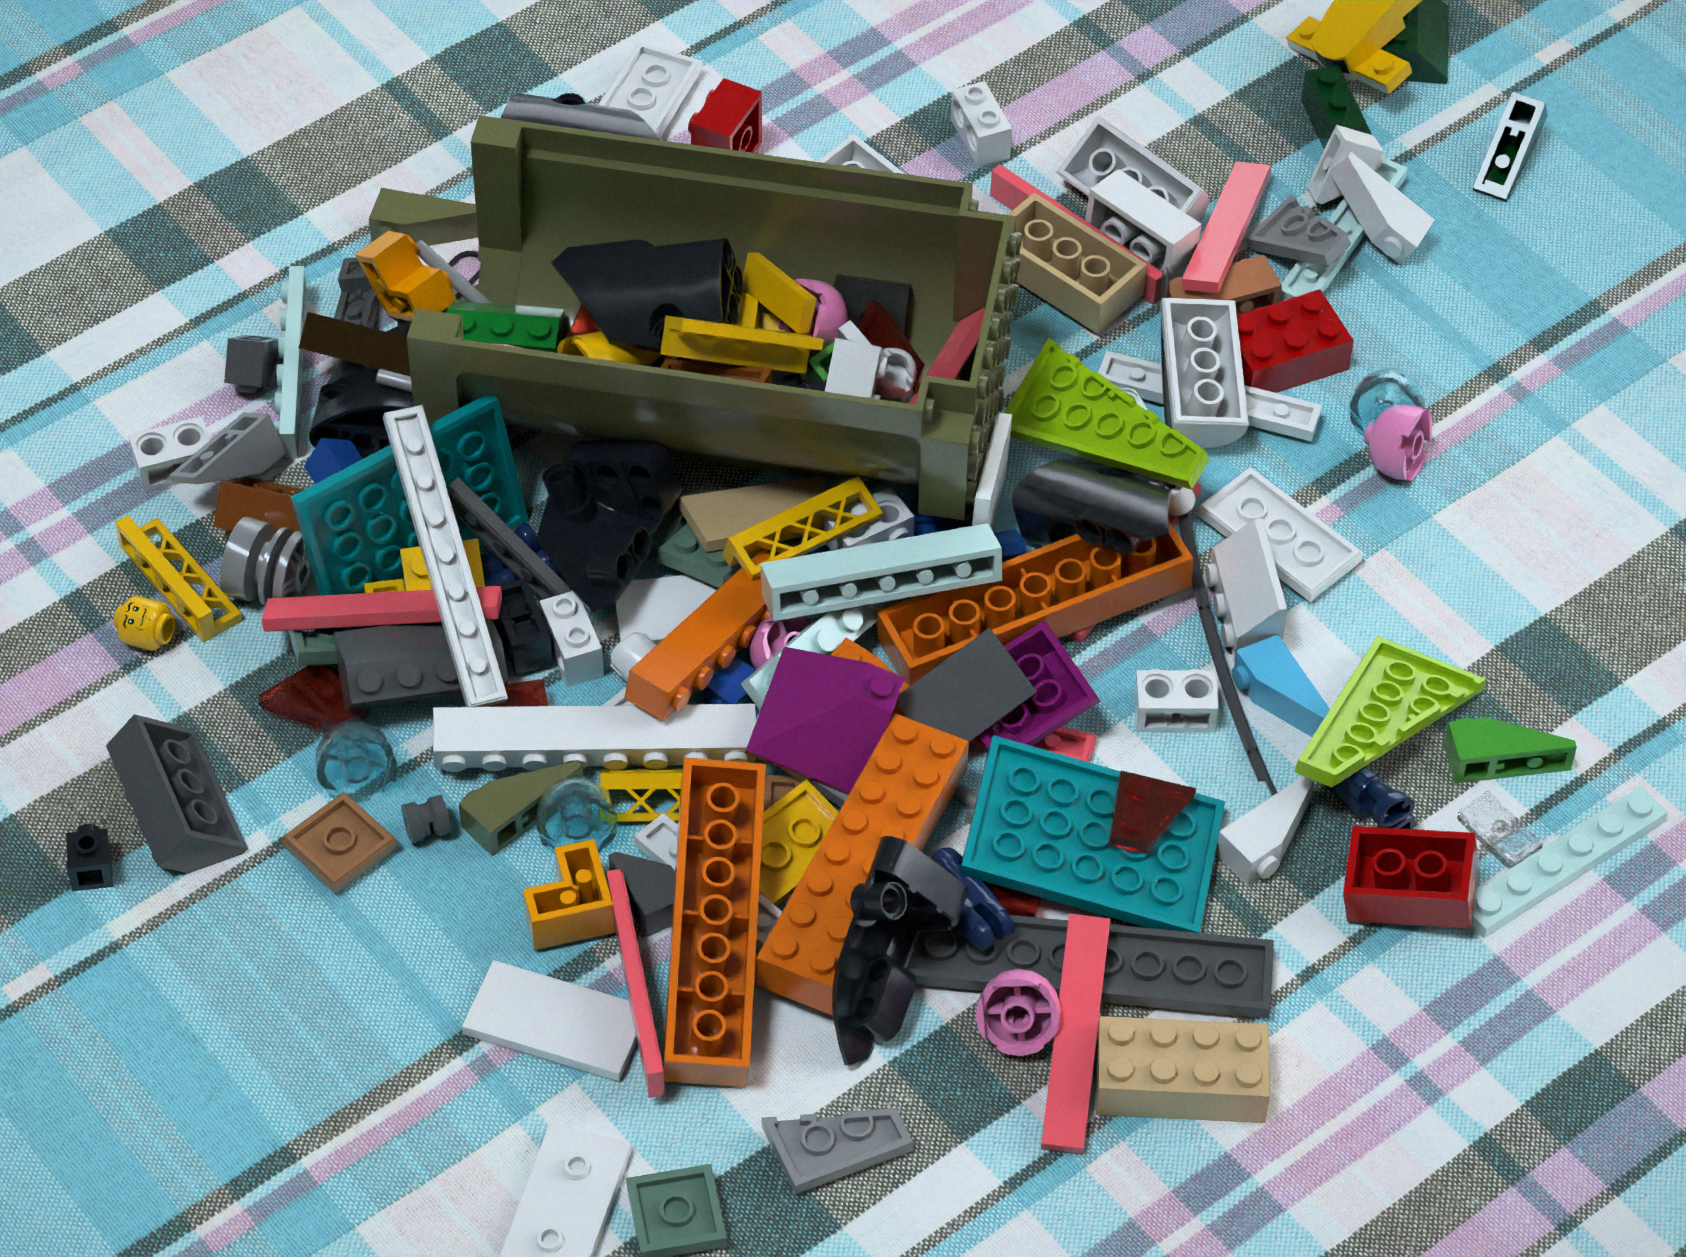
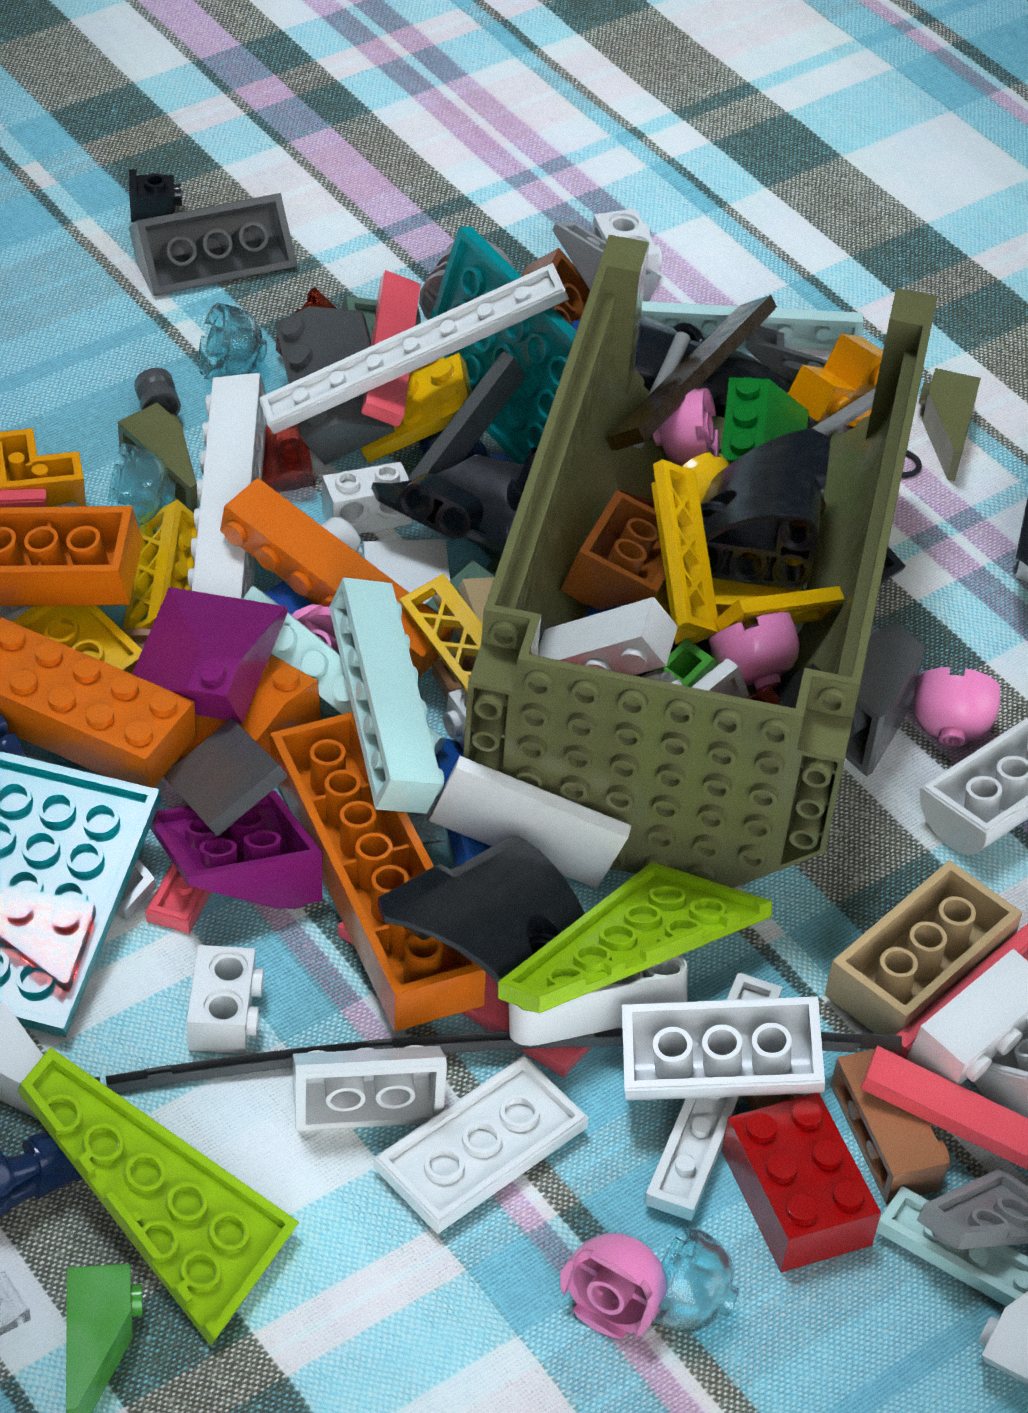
camera: 90 degrees right, 5 degrees down
(144, 623) = (413, 225): yellow head -> none
(173, 584) = (500, 228): yellow fence -> none
(250, 362) = (741, 284): dark grey slope -> none
(339, 842) = (143, 342): medium nougat plate -> none
(523, 628) = (379, 447): black brick -> none
(1279, 684) = (236, 1105): medium azure slope -> none

